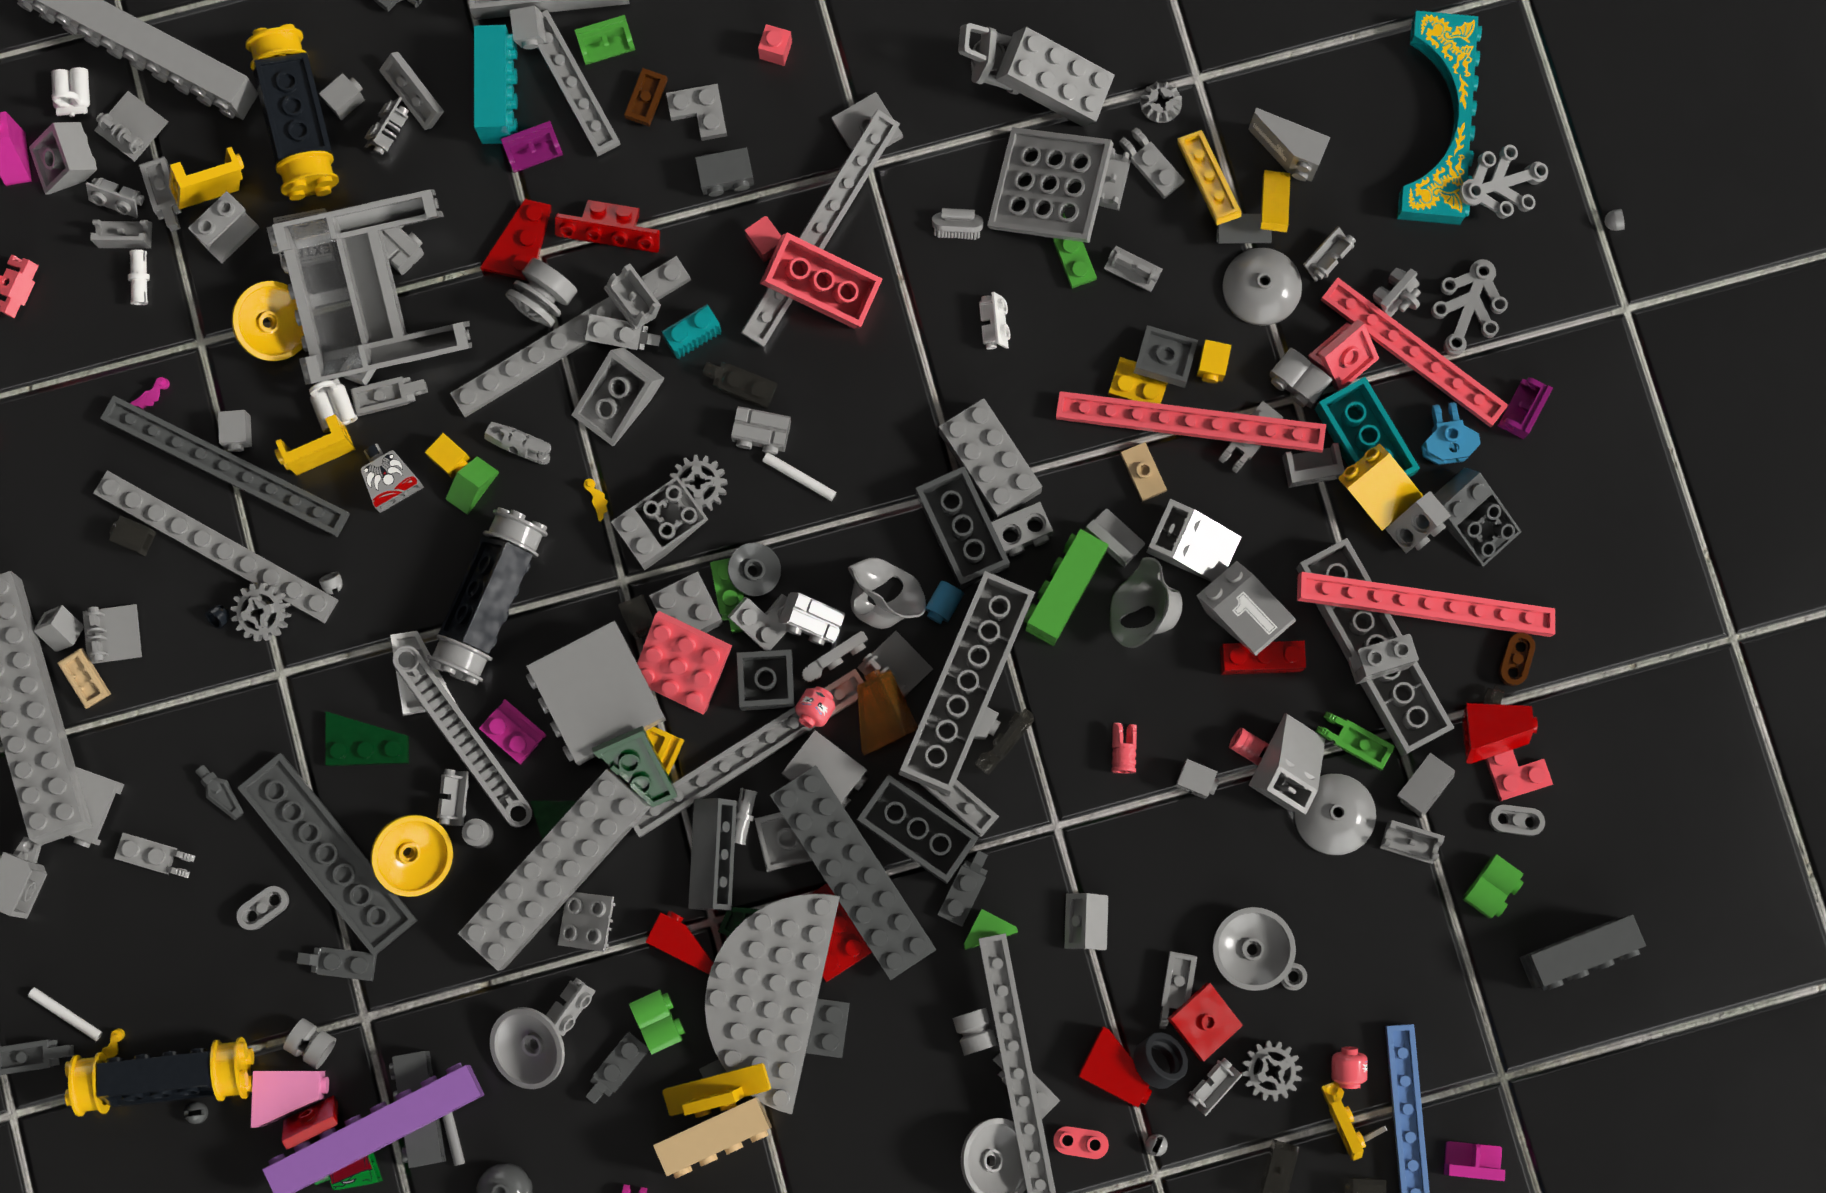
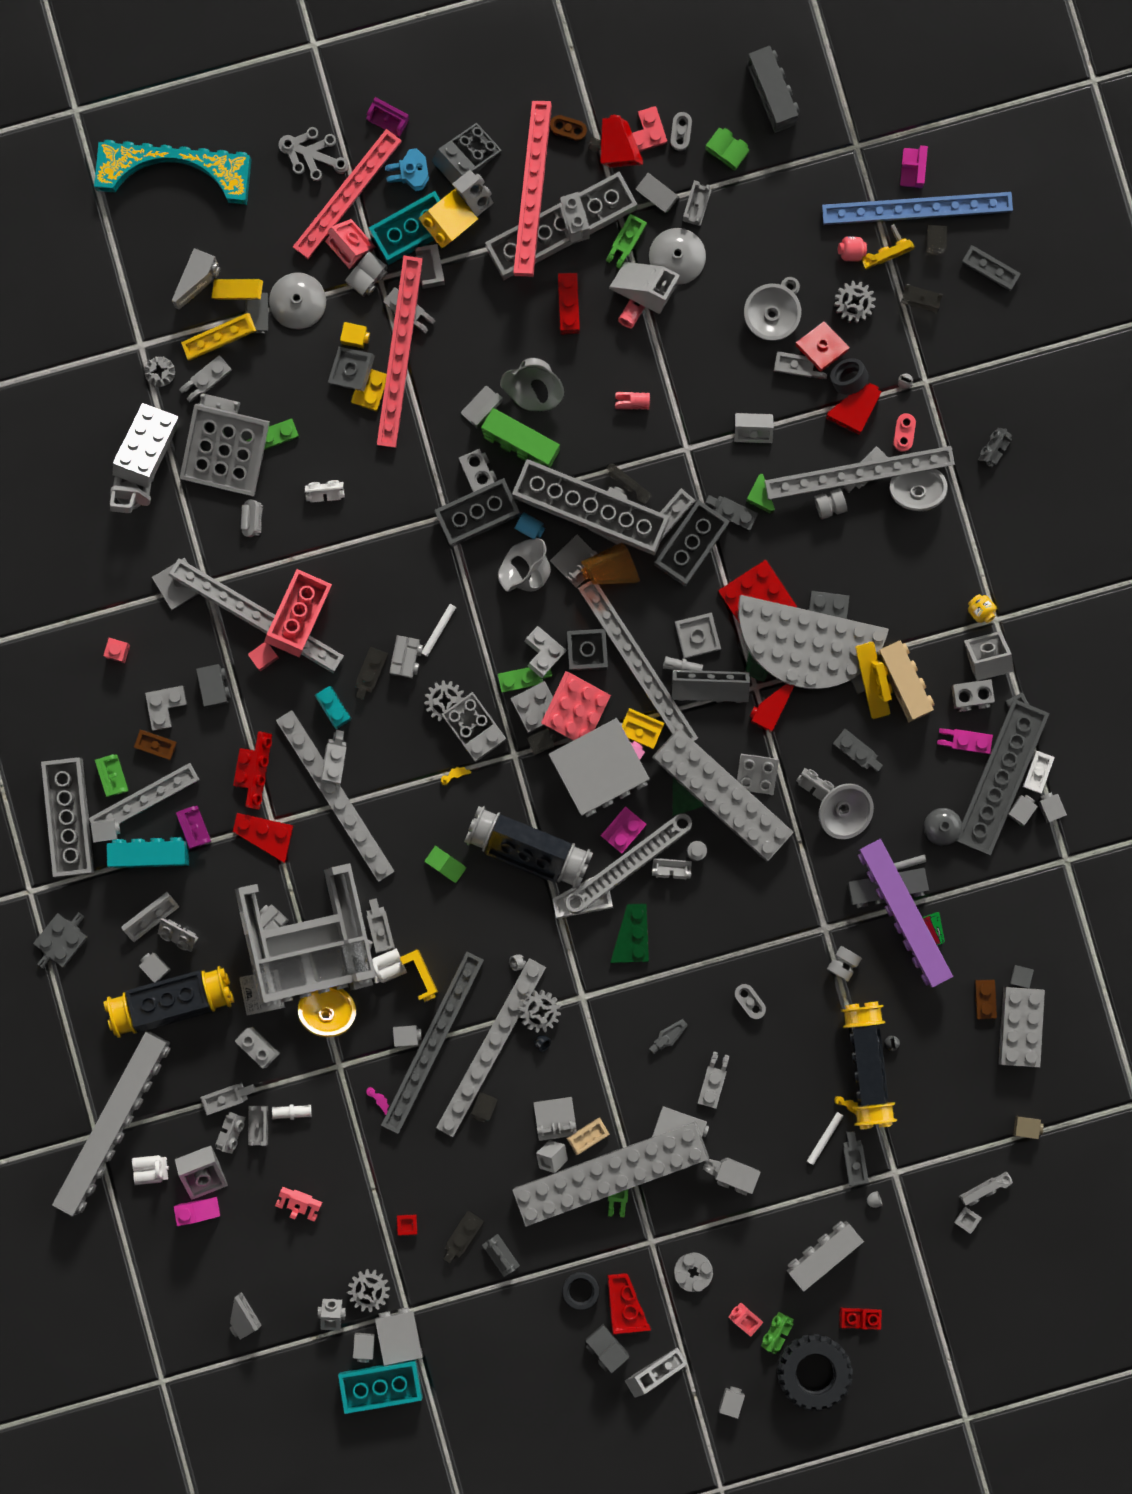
camera: 90 degrees left, 5 degrees up
(130, 125) = (175, 1124): light grey hinge -> none
(207, 183) = (228, 1077): yellow panel -> none
(283, 1093) = (878, 980): bright pink slope -> none
(310, 1122) = (898, 959): red plate -> none
(326, 854) = (711, 957): dark grey plate -> none
(340, 963) = (787, 946): dark grey hinge -> none
(388, 478) = (440, 923): torso -> none
(423, 867) = (718, 889): yellow dish -> none
(447, 455) = (425, 880): yellow brick -> none
(518, 443) = (414, 830): light grey hinge -> none
(541, 292) = (306, 815): light grey wheel -> none
(617, 395) = (380, 760): light grey slope -> none
(632, 297) = (309, 748): light grey hinge -> none
(638, 764) = (650, 735): wing -> none
(656, 1021) = (826, 723): bright green brick -> none
(764, 562) = (503, 652): dark grey dish -> none
(811, 618) = (542, 618): brick -> none
(815, 707) = (607, 614): coral head -> none
(833, 658) = (570, 604): light grey hinge -> none
(836, 766) = (652, 608): light grey brick -> none
(853, 872) = (722, 587): dark grey plate -> none
(990, 459) = (426, 492): light grey brick -> none
(1133, 268) = (285, 392): light grey hinge -> none
(1143, 471) = (434, 386): tan plate -> none
(1193, 542) = (486, 351): slope -> none
(1197, 779) = (654, 350): light grey brick -> none
(1210, 1092) = (866, 340): light grey hinge -> none
(1245, 608) = (535, 314): light grey slope -> none
(1326, 255) = (281, 257): light grey hinge -> none
(1402, 295) = (297, 199): light grey hips -> none
(1501, 184) = (224, 129): light grey plant -> none
(1615, 220) = (249, 50): light grey hinge -> none

